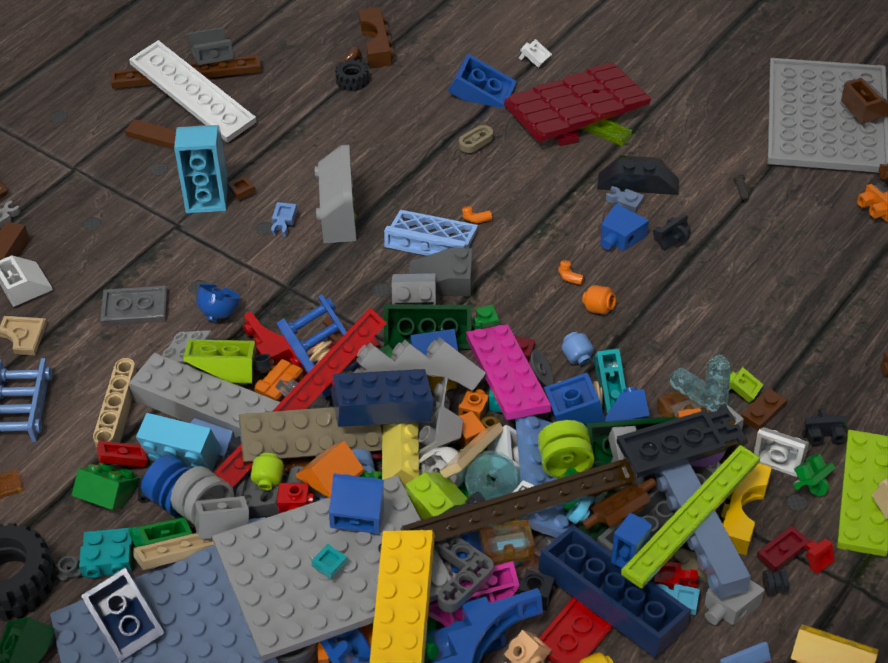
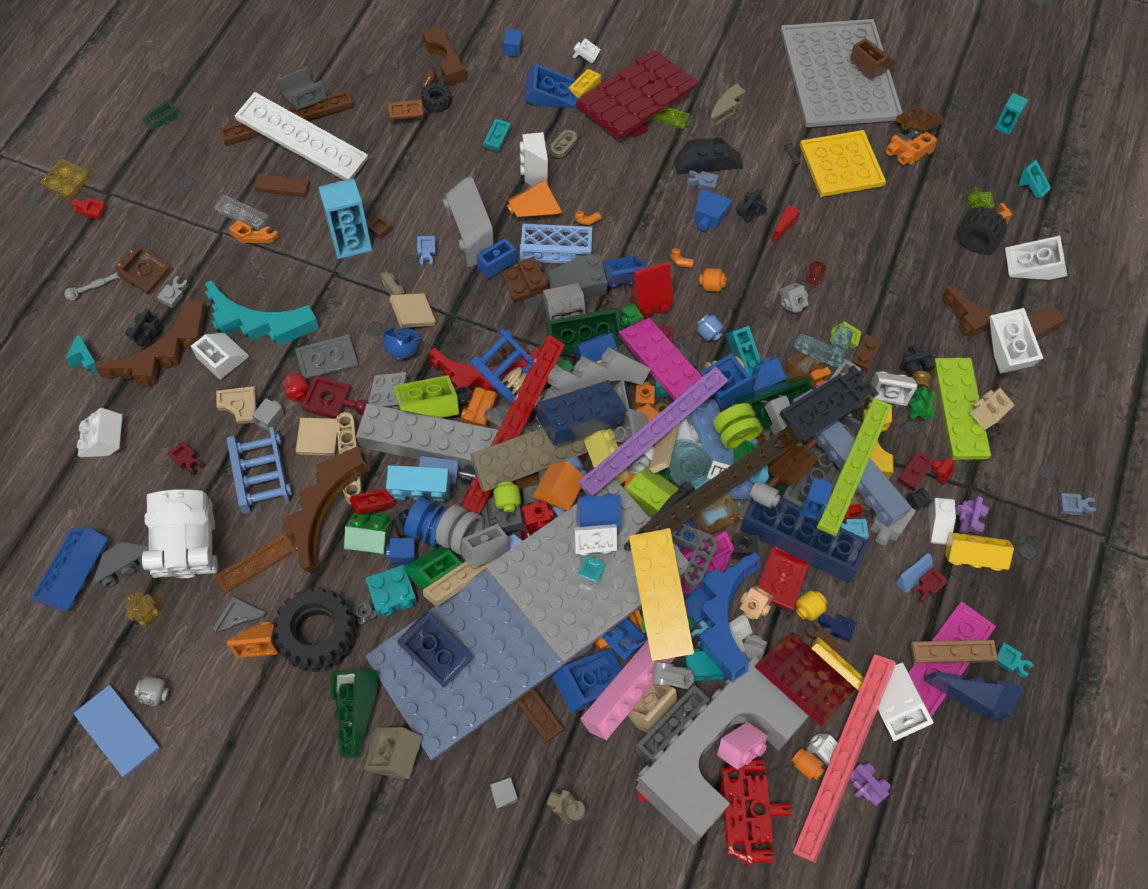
camera: 20 degrees left, 15 degrees up
(48, 346) = (268, 414): none -> light grey brick
(60, 52) = (166, 107): none -> clear green slope
(61, 438) = (316, 500): none -> reddish brown arch
(87, 326) = (295, 386): none -> red head
(89, 380) = (317, 437): none -> tan tile
(94, 264) = (278, 325): none -> teal arch
(98, 174) = (244, 234): none -> orange piece
(102, 152) = (241, 212): none -> clear plate
(117, 331) = (333, 407): none -> dark red plate
(134, 511) = (401, 551): none -> blue brick
(230, 242) = (388, 281): none -> dark tan plate
(243, 273) = (412, 310): none -> tan tile
(312, 80) = (405, 109): none -> dark orange hinge
(343, 527) = (595, 539): none -> white bracket
(355, 236) = (496, 258): none -> blue brick
(380, 264) = (525, 279): none -> reddish brown plate
(404, 120) = (497, 135): none -> teal plate
(419, 187) = (534, 201): none -> orange slope
(431, 145) = (533, 158): none -> white slope
(455, 35) = (512, 42): none -> blue brick
(460, 431) = (652, 432): none -> medium lavender plate
(492, 272) = (622, 270): none -> blue slope
(518, 293) = (652, 289): none -> red slope
(522, 83) = (585, 83): none -> yellow slope
(573, 529) = (765, 494): none -> light grey brick
(677, 128) = (727, 105): none -> dark tan slope
(689, 333) = (794, 297): none -> light grey brick
(707, 255) = (788, 218): none -> red slope
(727, 313) = (815, 273): none -> clear red wheel
(797, 609) = (941, 520): none -> white slope
(799, 206) = (842, 163): none -> yellow plate
(823, 446) = (922, 379): none -> pearl gold wheel
(837, 610) = (970, 514): none -> medium lavender hips

